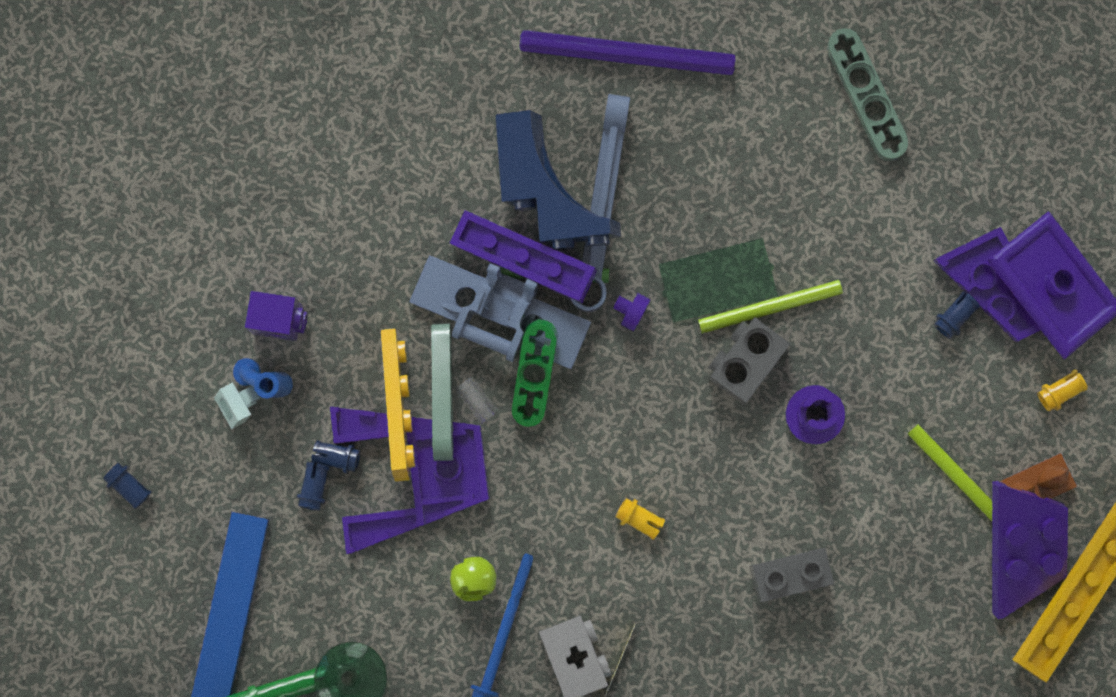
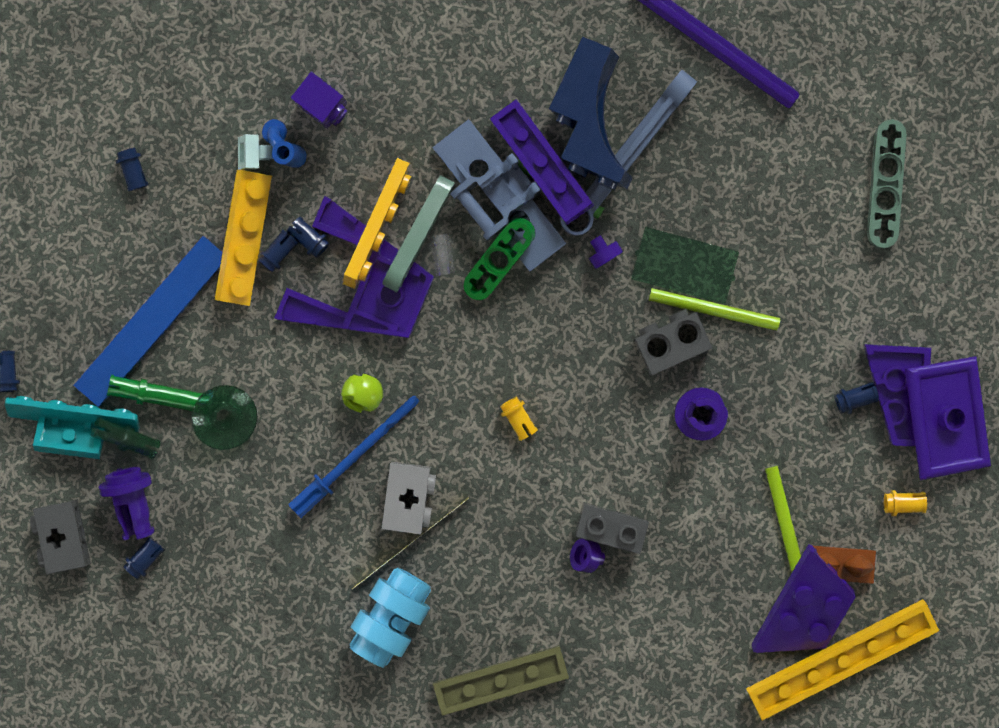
camera: 25 degrees right, 5 degrees up
(272, 492) = (243, 237): none -> yellow plate
(782, 616) = (586, 556): none -> dark purple tile

